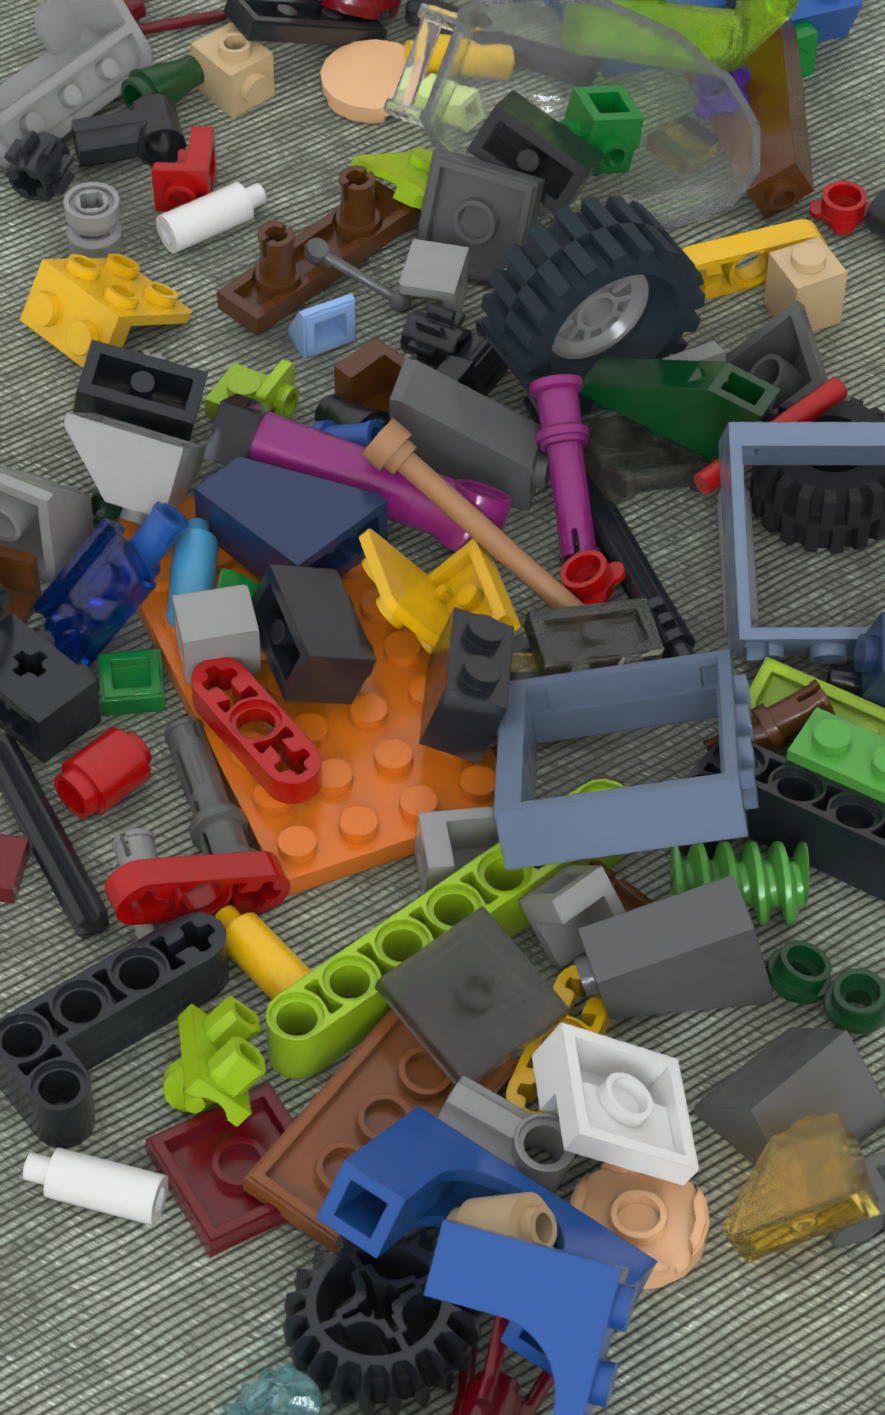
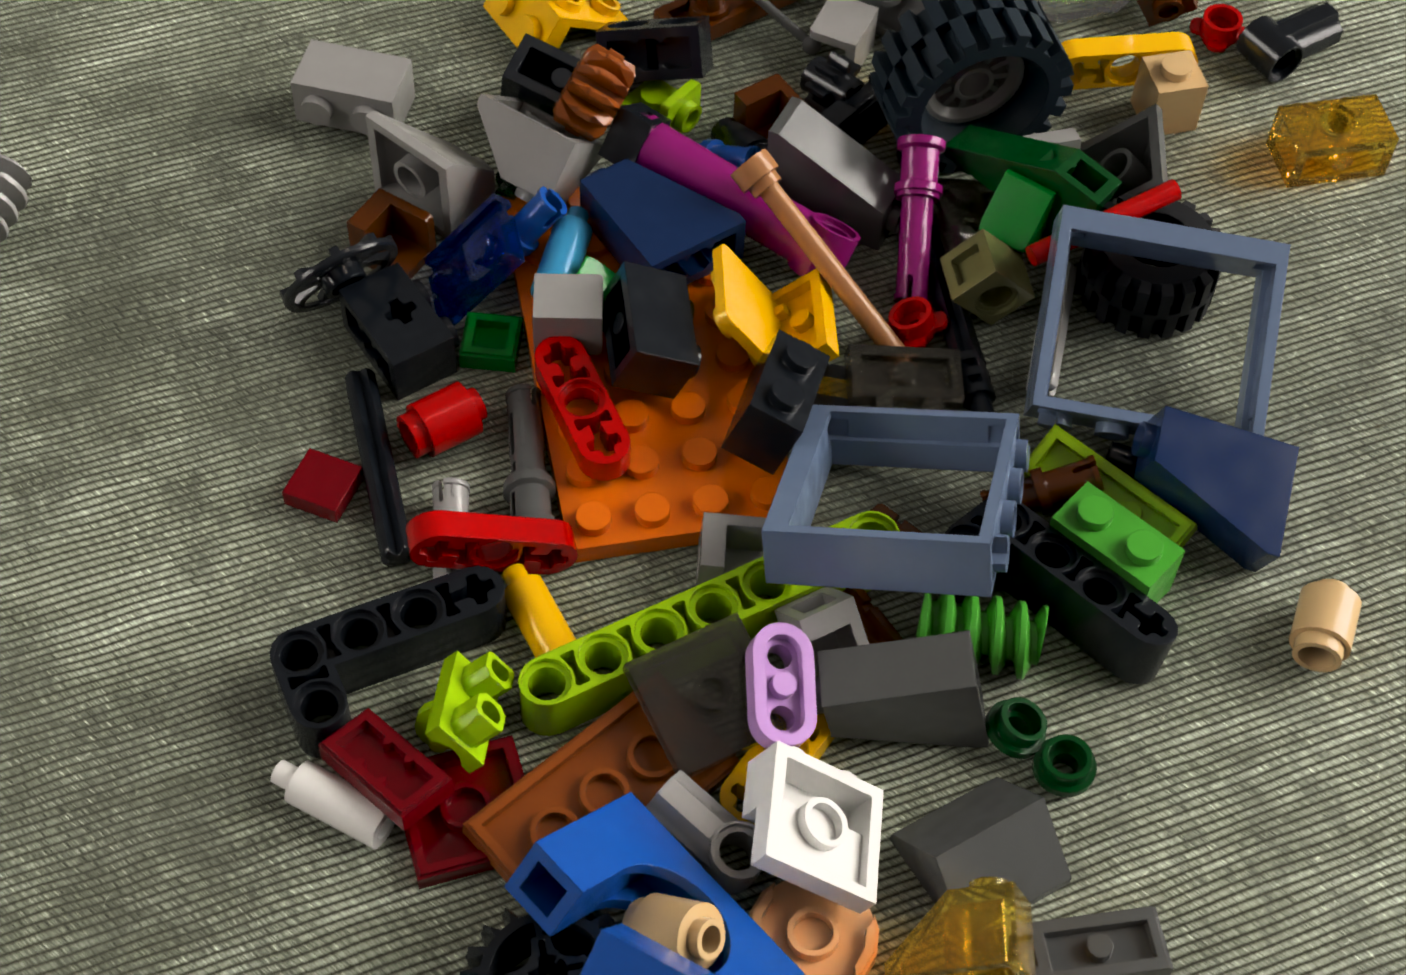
camera: 10 degrees right, 5 degrees up
(148, 1137) = (386, 769): none -> dark red plate
(187, 391) = (594, 92): none -> dark orange gear
(234, 333) = (662, 46): none -> black brick
(324, 326) = (740, 56): light blue slope -> none
(548, 977) = (781, 691): none -> lavender plate
(657, 516) = (987, 277): none -> olive brick
(675, 440) = (1018, 211): none -> green slope

